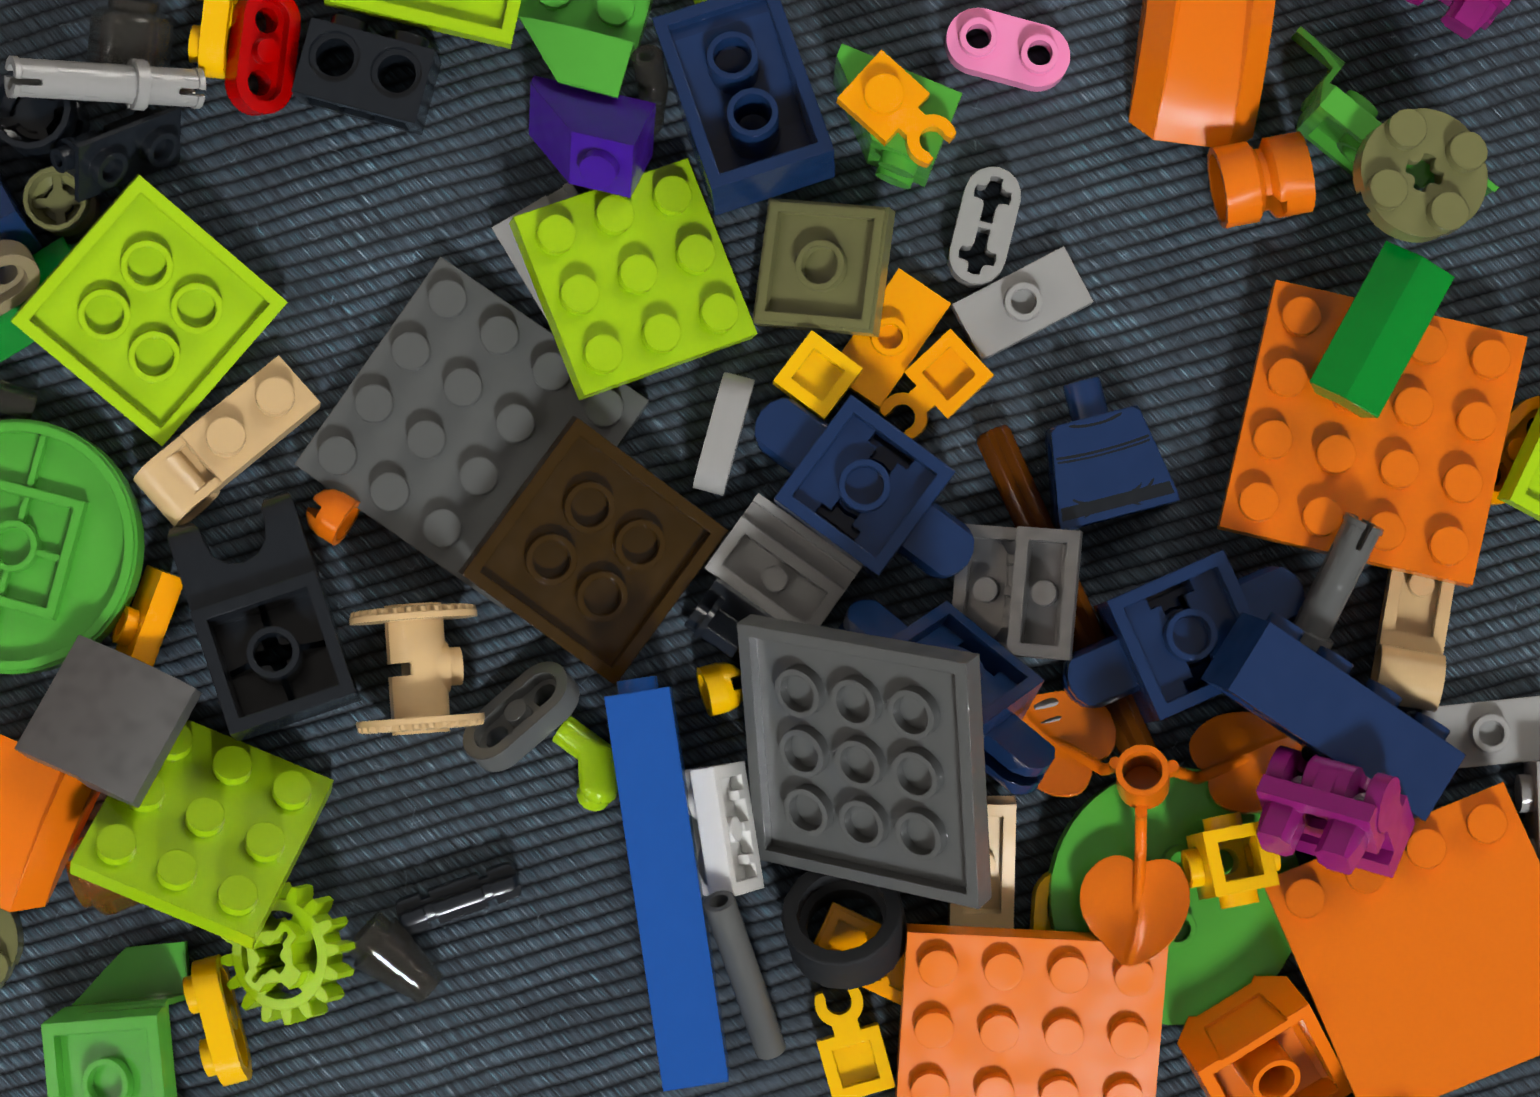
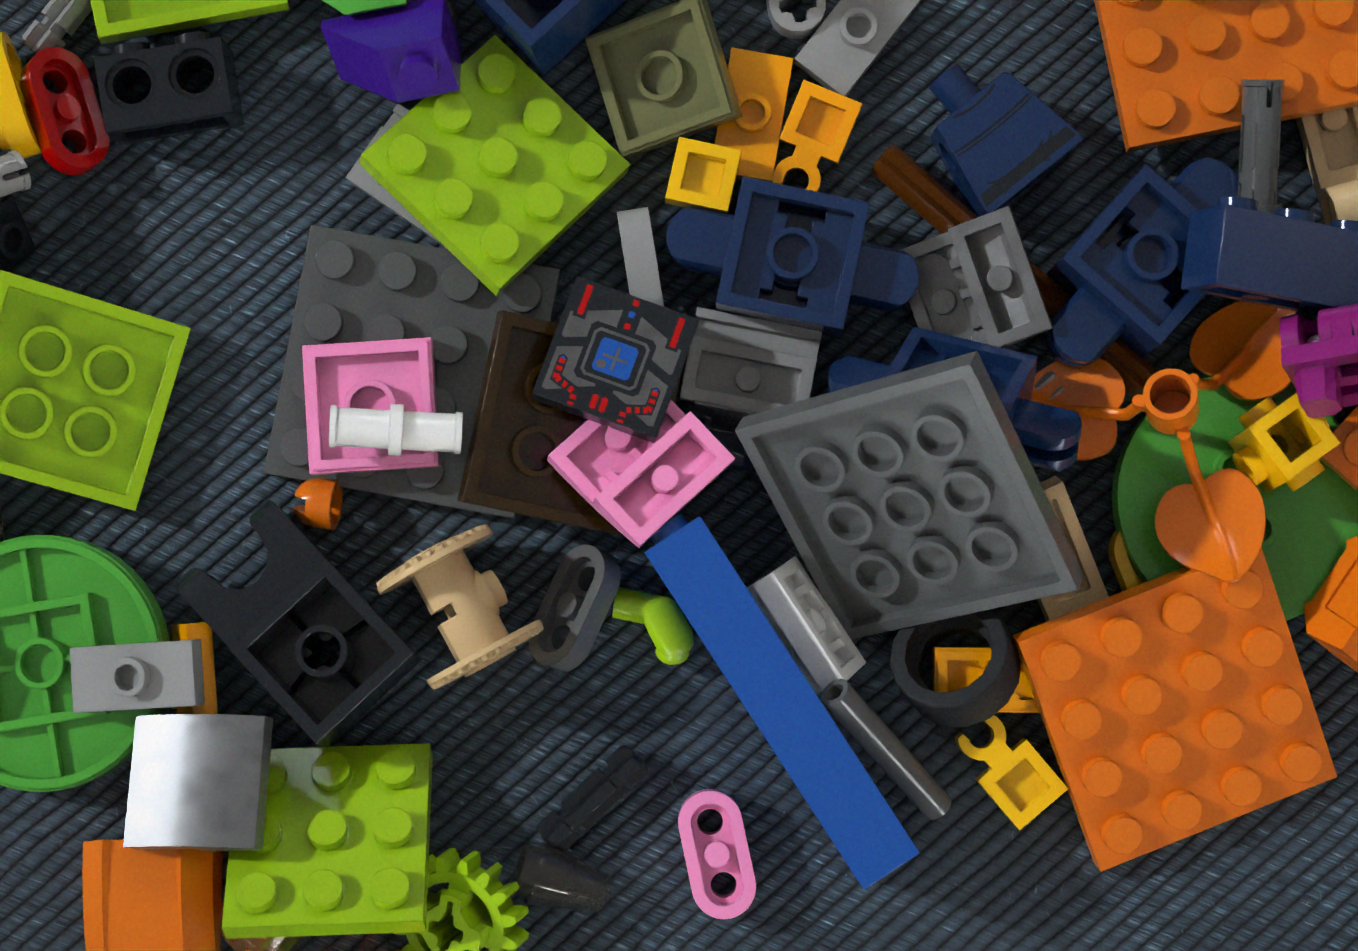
camera: 15 degrees left, 0 degrees up
(96, 599) = (137, 676): none -> light grey plate
(226, 442) = (191, 480): tan plate -> none
(419, 449) = (366, 378): none -> bright pink tile
(431, 482) = (395, 429): none -> white pin
(549, 999) = (716, 853): none -> bright pink plate
(640, 610) = (640, 481): none -> bright pink slope
(659, 508) = (615, 359): none -> black tile
(717, 688) = (740, 501): yellow hinge -> none

